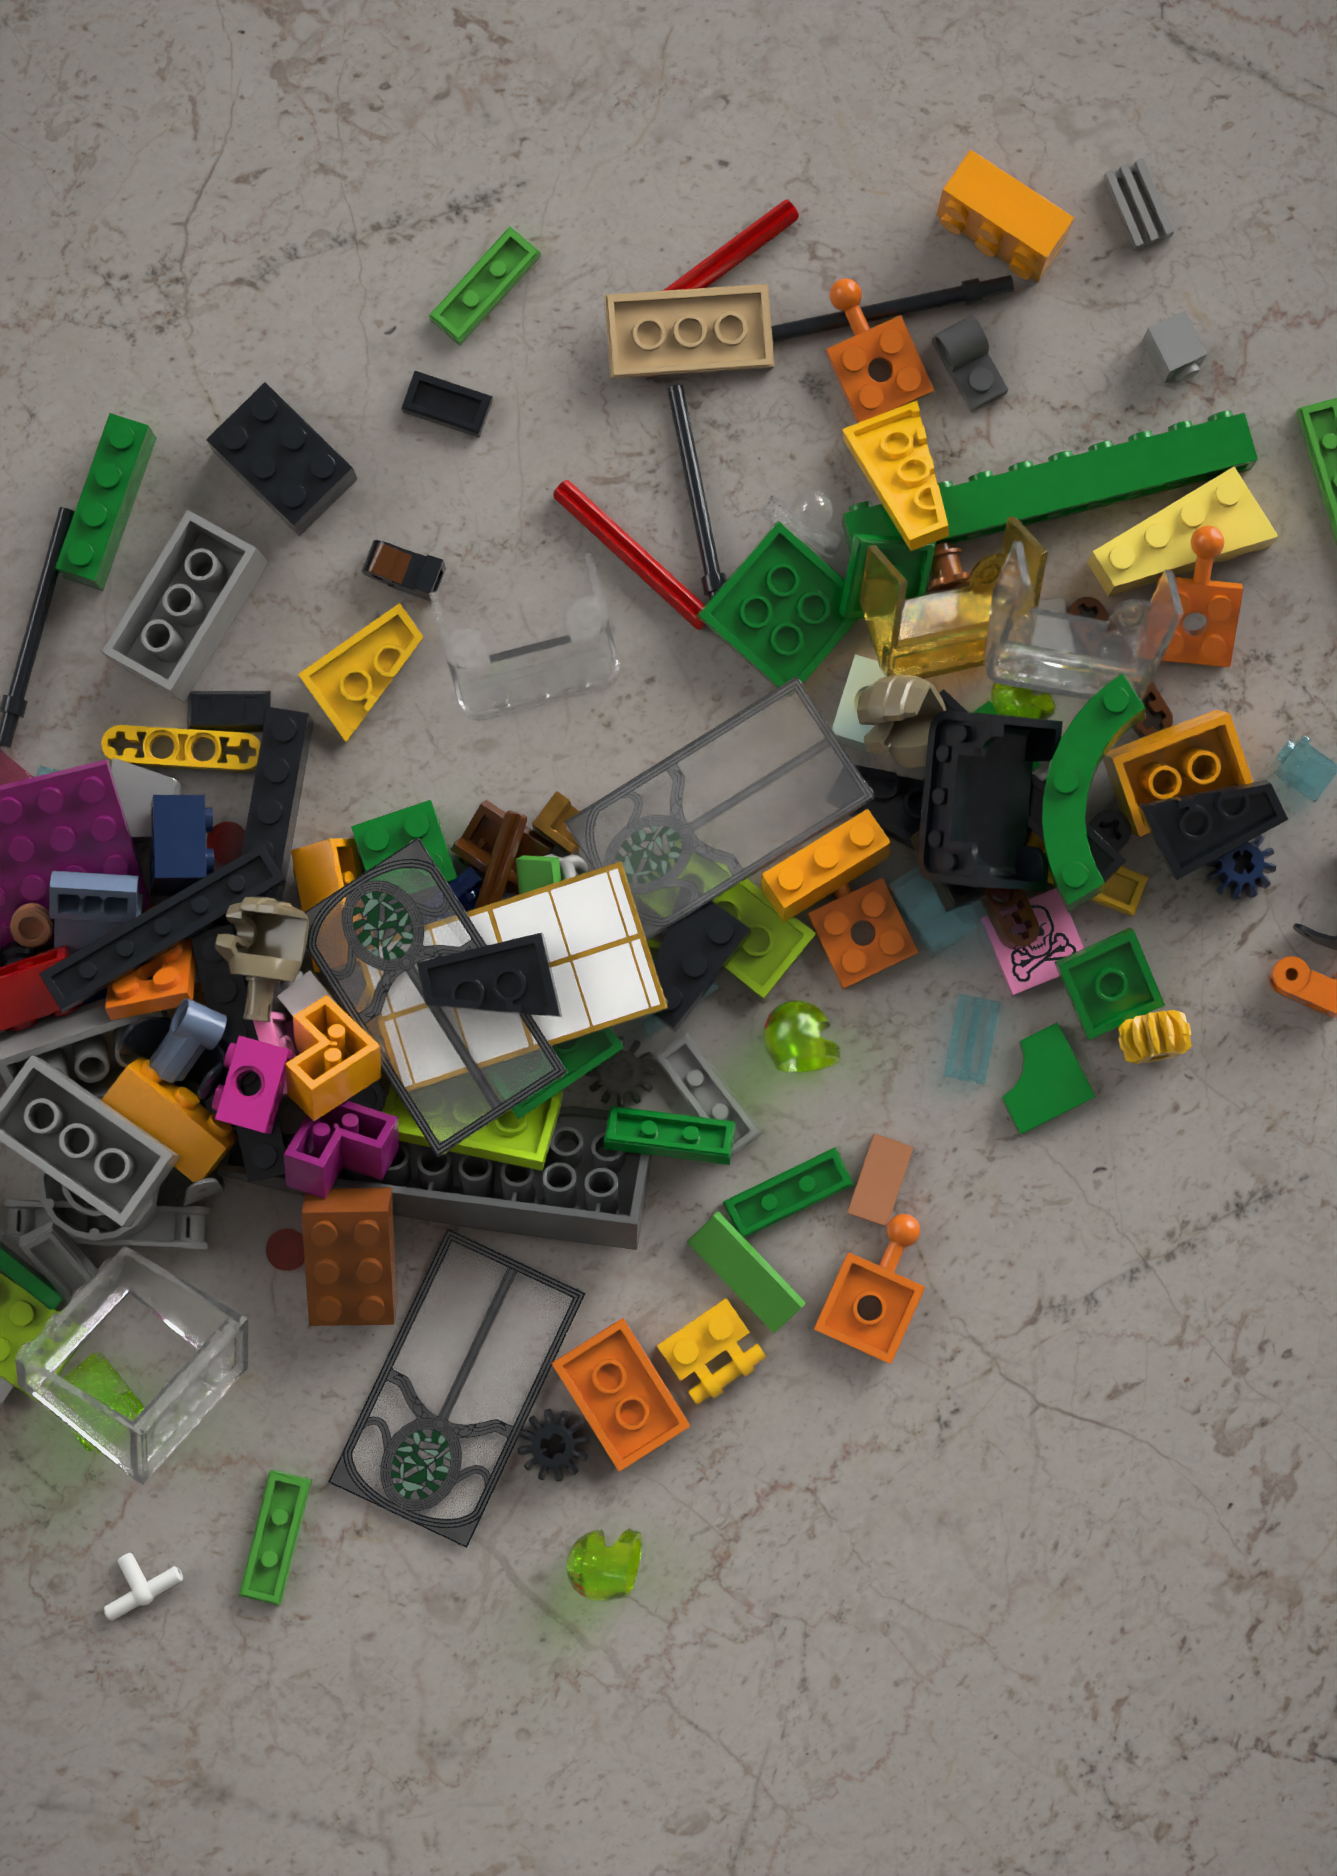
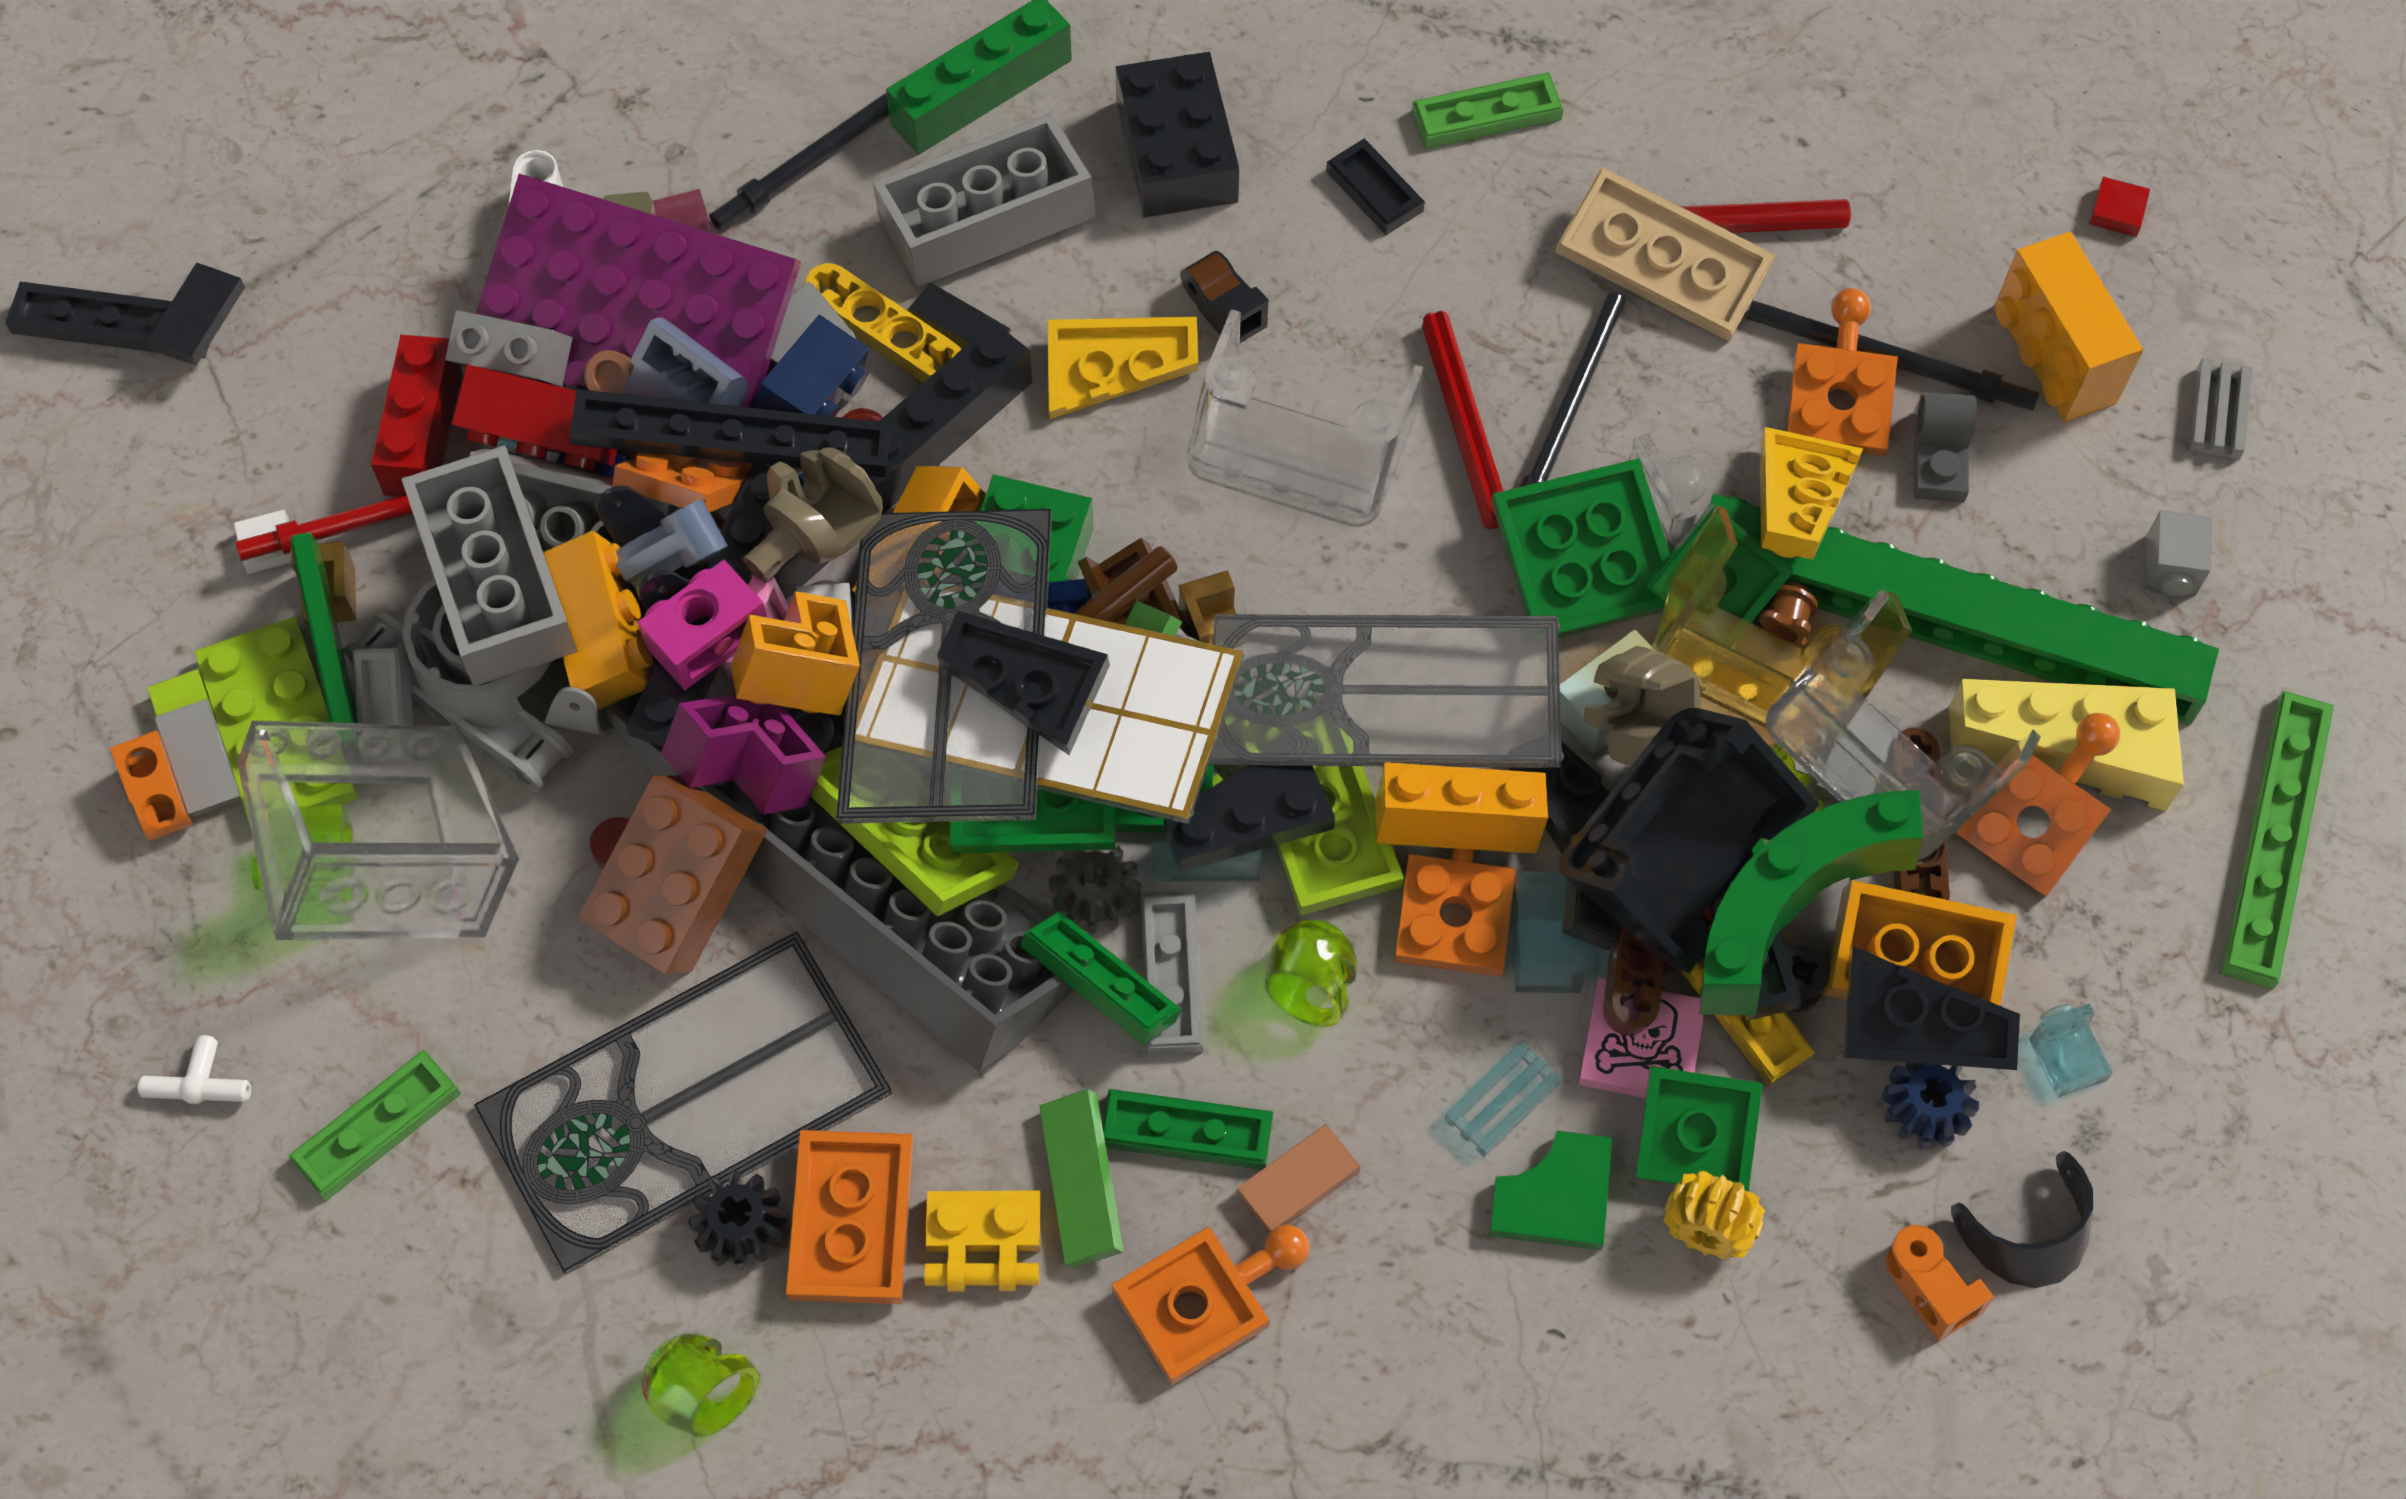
camera: 30 degrees right, 20 degrees down
(978, 76) = (2119, 206): none -> red tile

